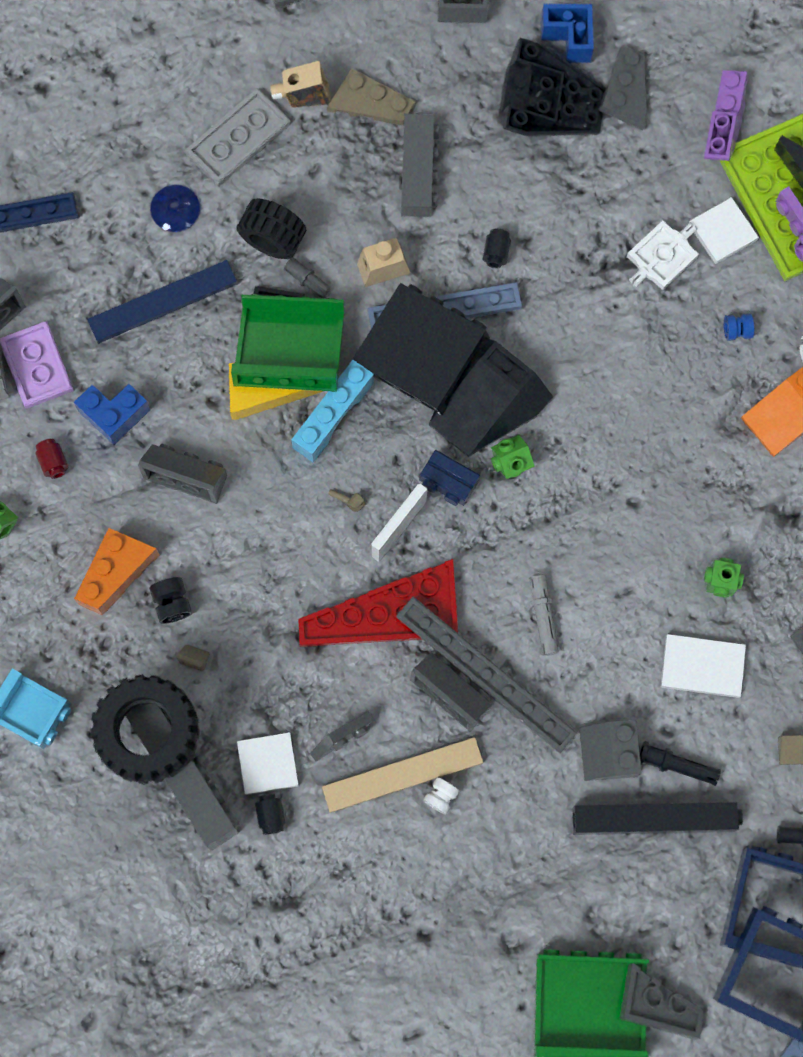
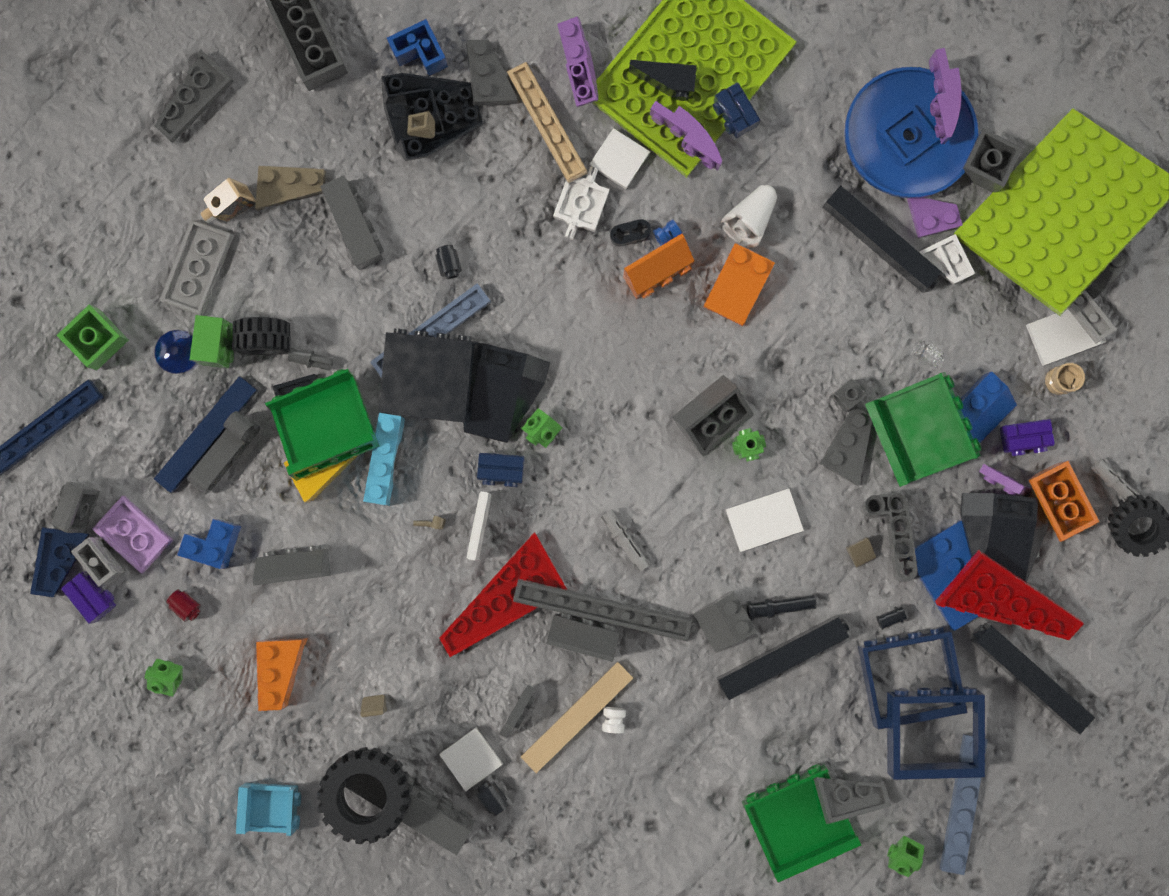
camera: 20 degrees left, 10 degrees up
(100, 152) = (92, 337): none -> bright green brick
(170, 591) = (331, 664): black wheel -> none
(173, 326) = (237, 436): none -> dark grey beam
(218, 212) = (212, 342): none -> bright green brick
(382, 262) = (364, 318): tan torso -> none
(537, 102) = (421, 125): none -> dark tan slope
(665, 161) = (547, 122): none -> tan tile
(699, 306) = (631, 237): none -> black beam
(700, 530) = (713, 415): none -> dark grey slope
(713, 352) = (659, 267): none -> orange slope

